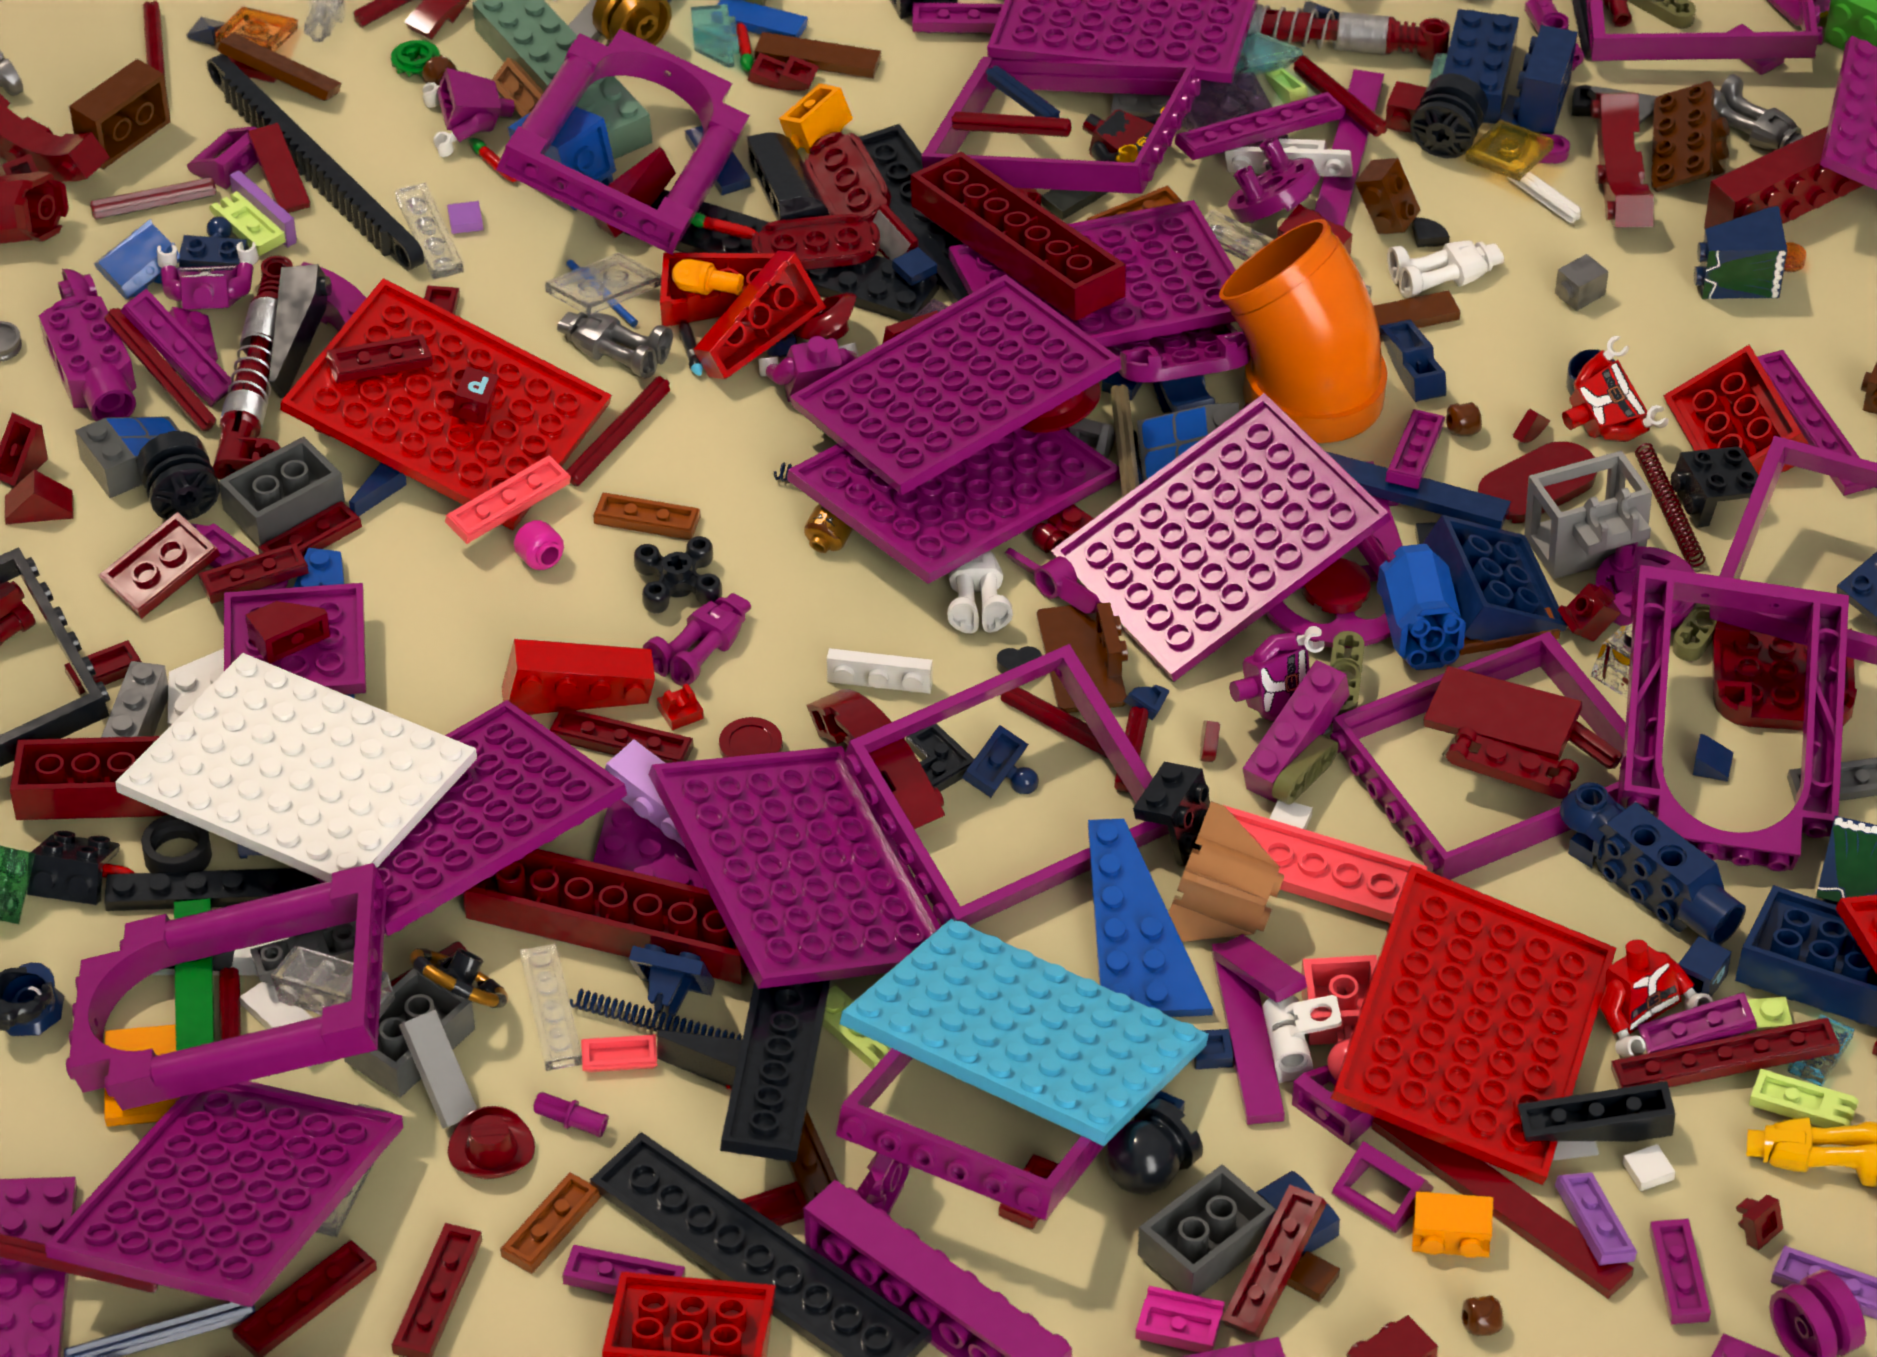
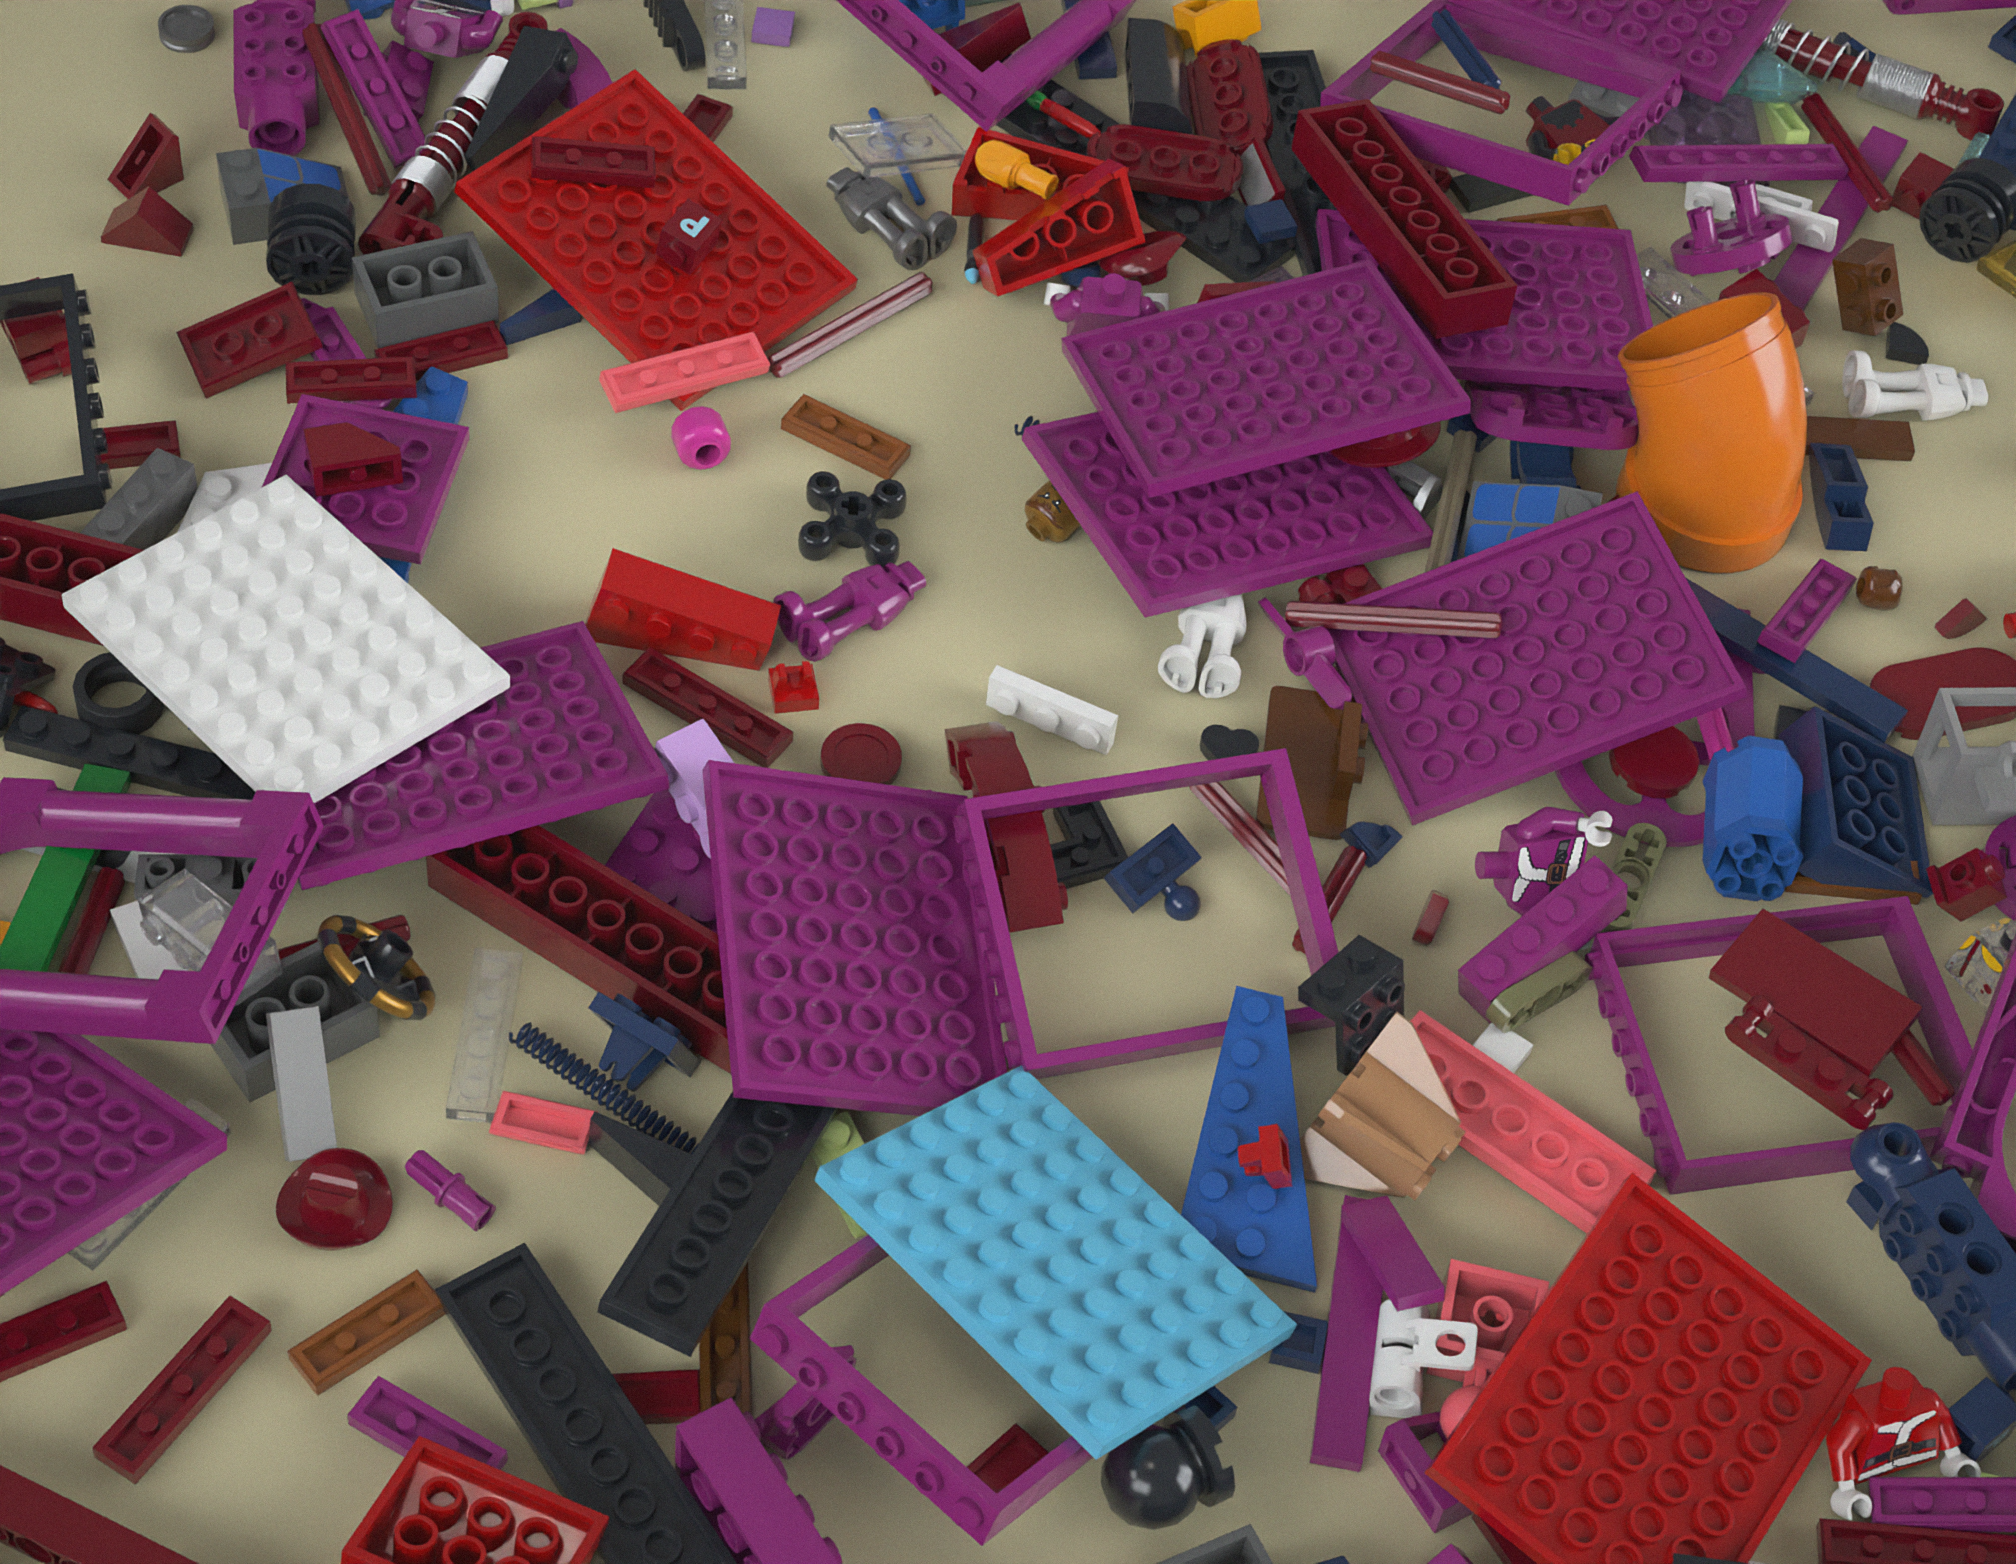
camera: 10 degrees right, 5 degrees up
(1112, 536) = (1394, 619): none -> axle
(1150, 928) = (1268, 1157): none -> red tile

